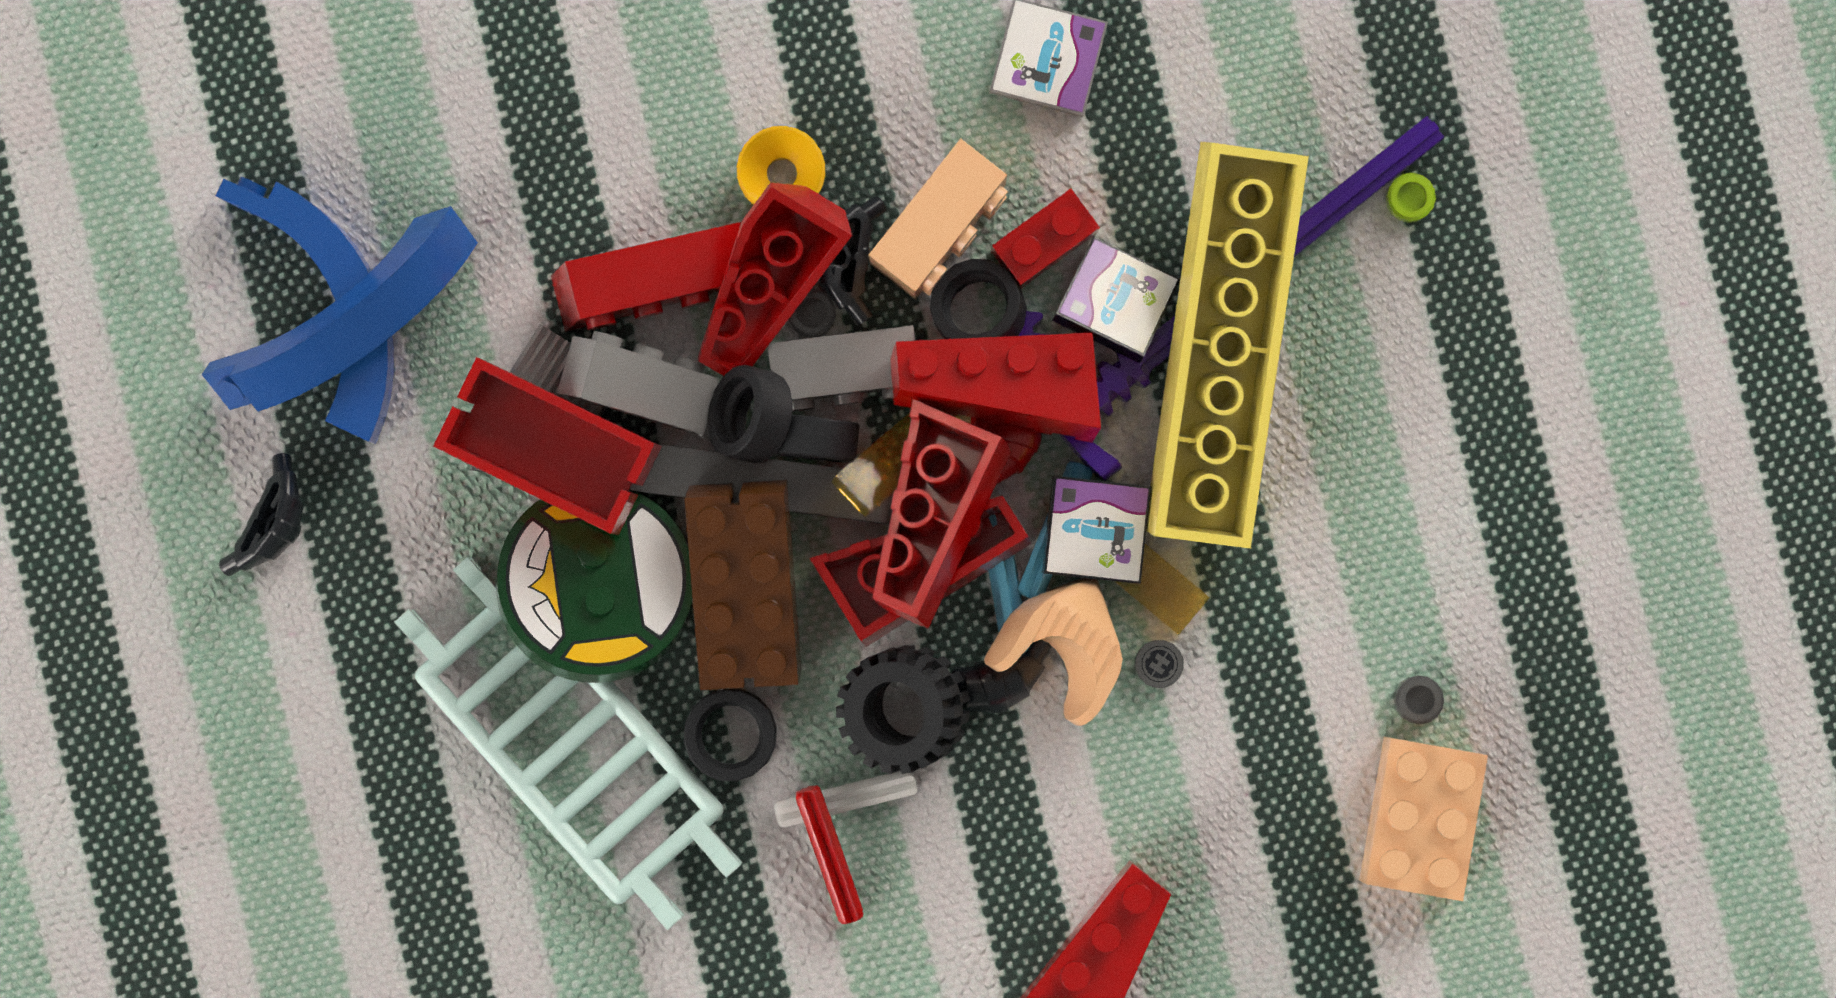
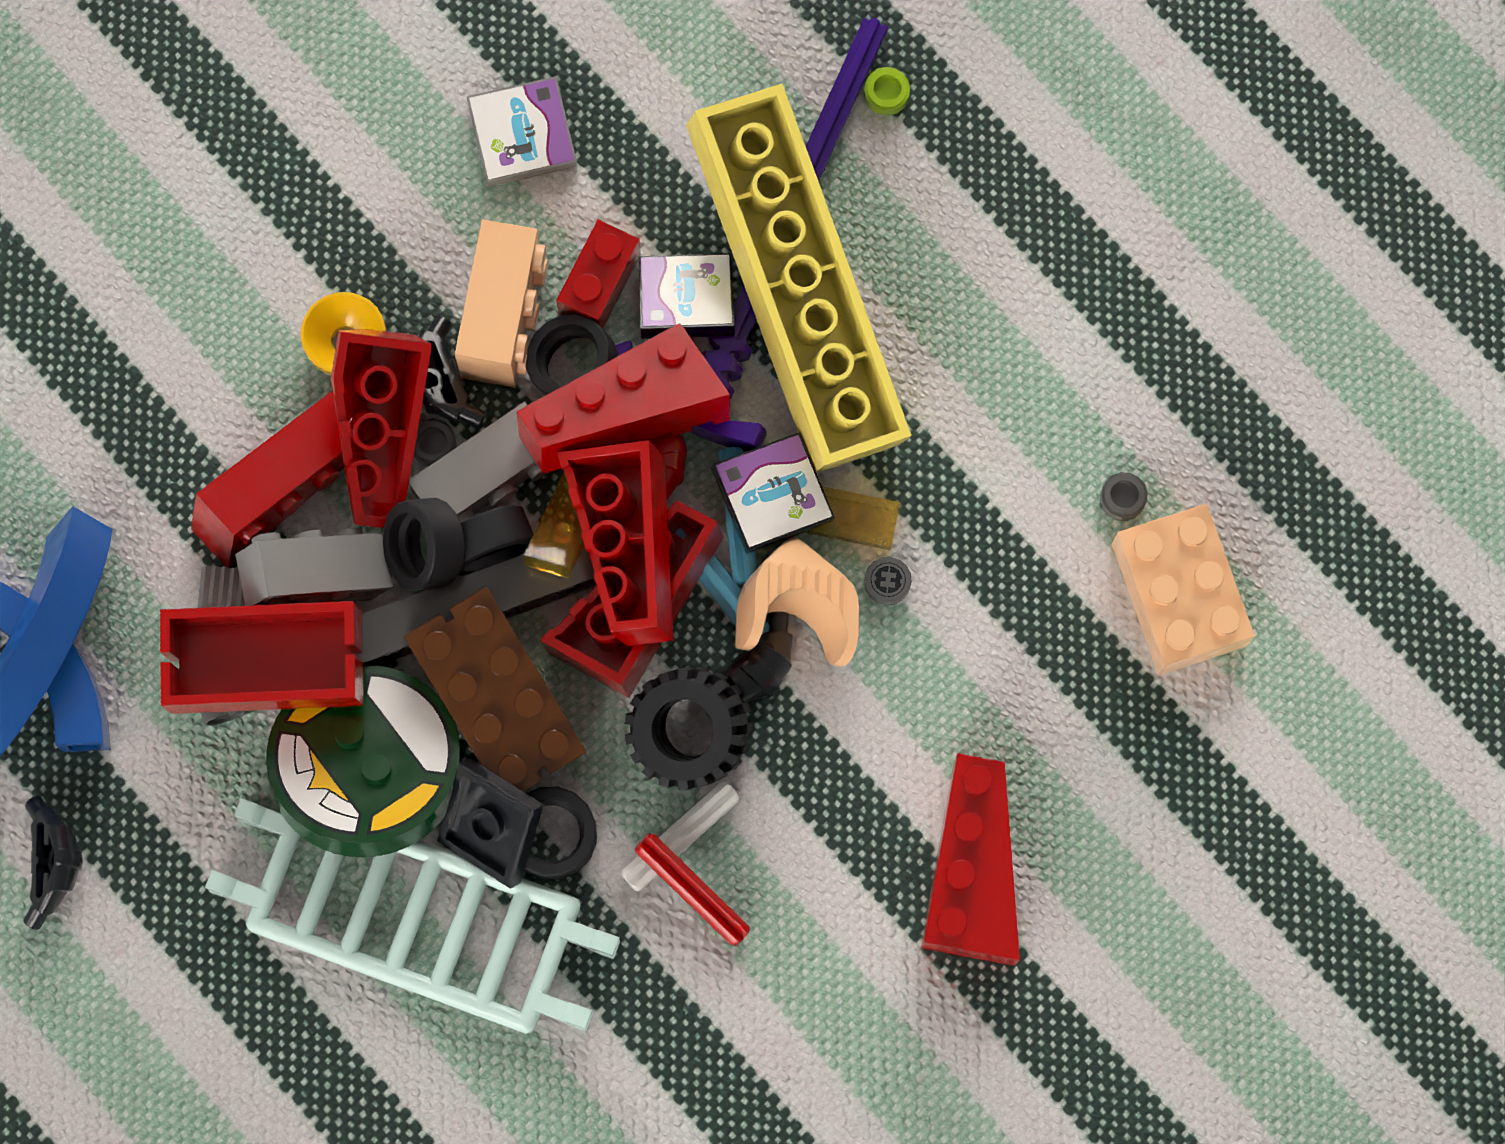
camera: 30 degrees left, 10 degrees down
(678, 701) = (490, 823): none -> black tile

